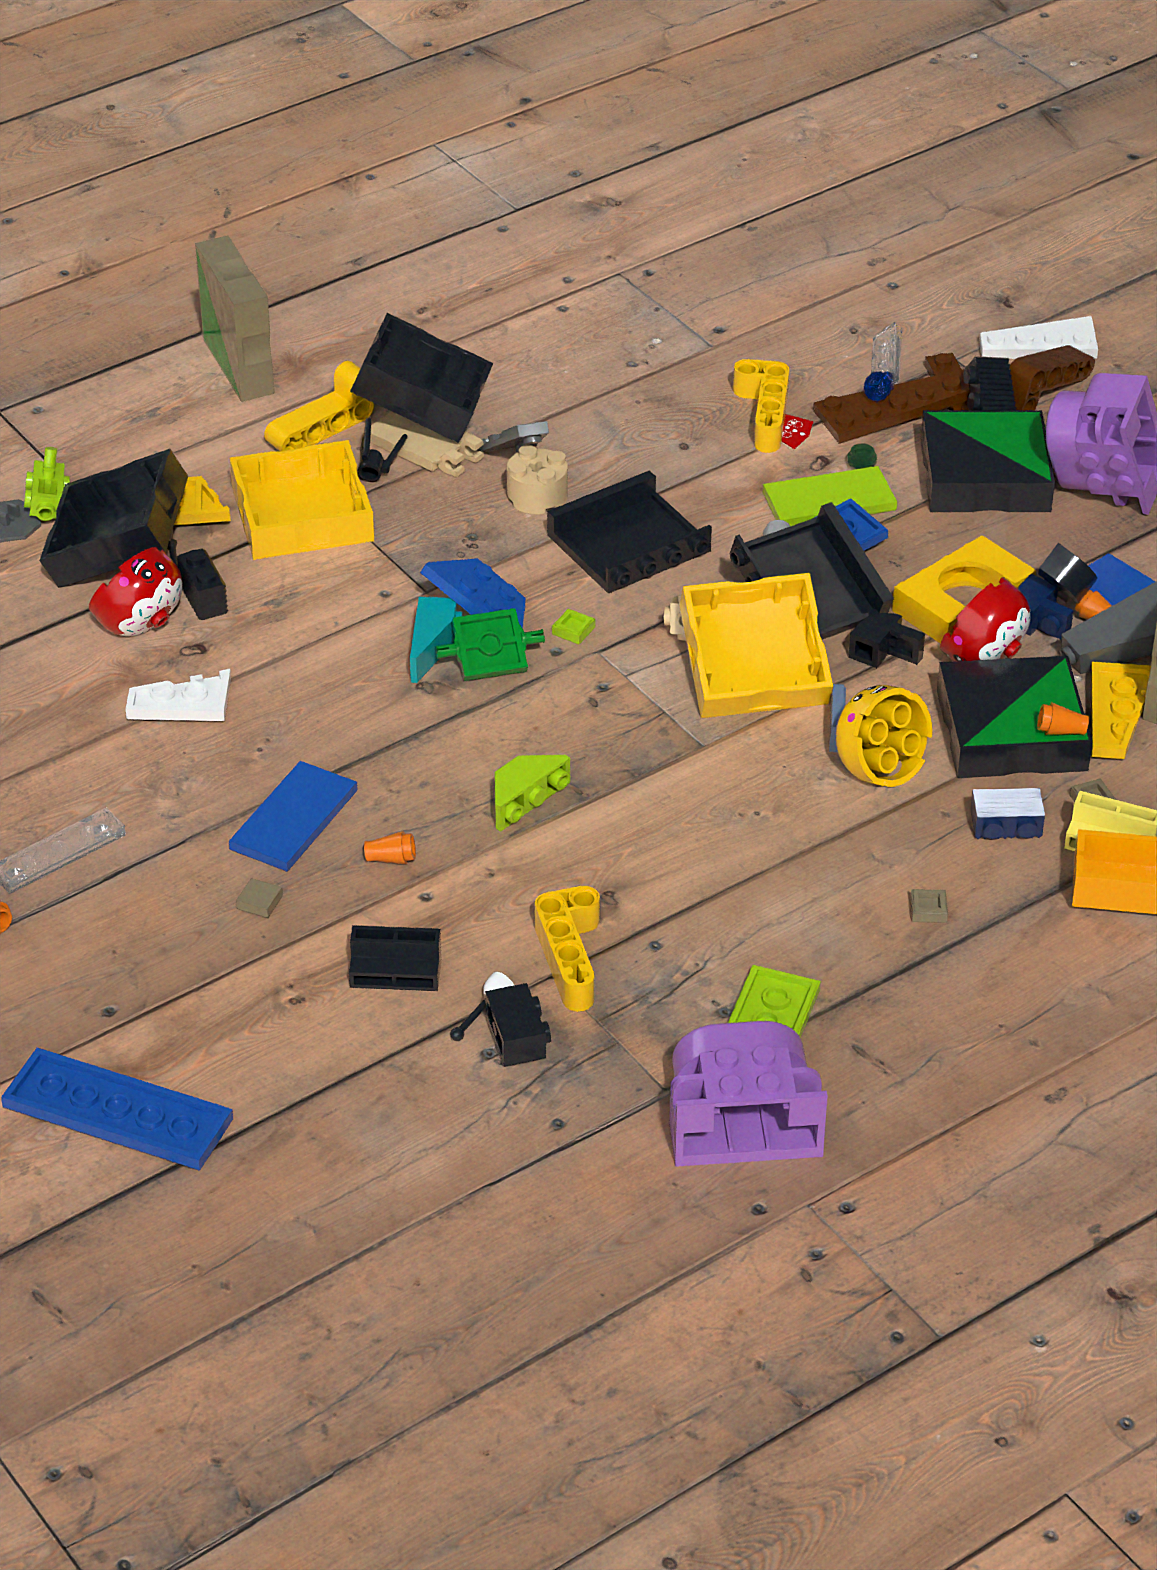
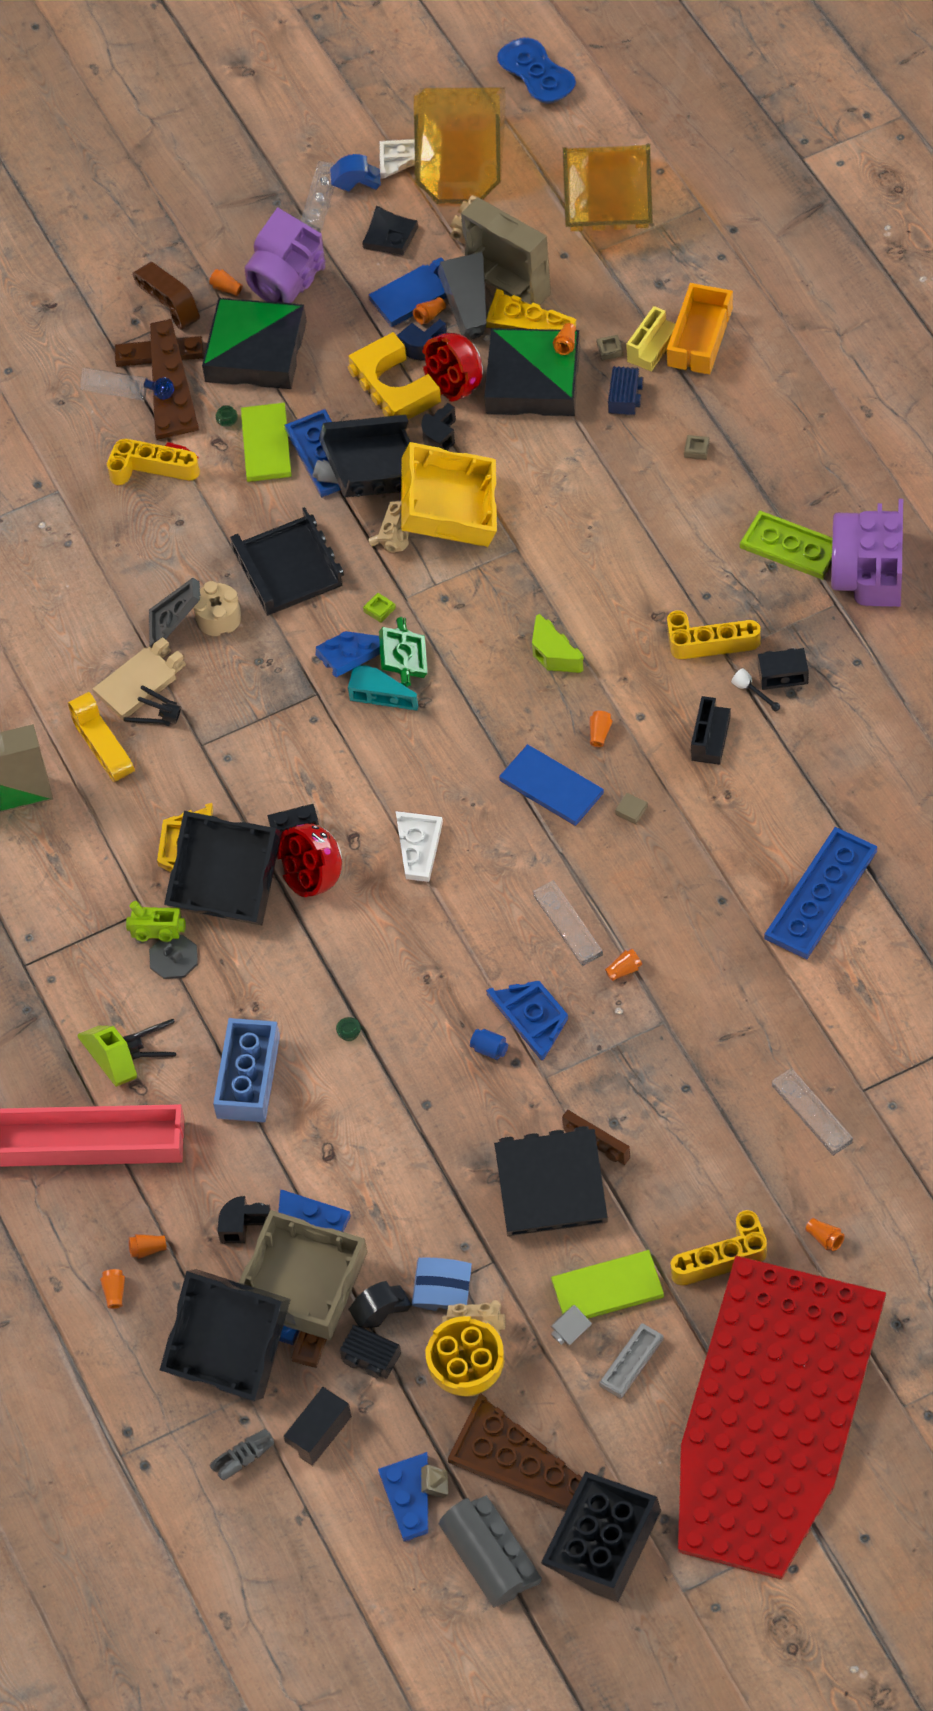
camera: 75 degrees left, 15 degrees up
(301, 500) = (204, 758): yellow tile -> none
(422, 377) = (97, 659): black tile -> none
(838, 703) = (516, 467): sand blue tile -> none
(879, 730) = (547, 441): yellow cylinder -> none
(989, 384) = (187, 321): black brick -> none
(1040, 337) = (109, 288): white wing -> none
(1067, 574) = (411, 312): black brick -> none

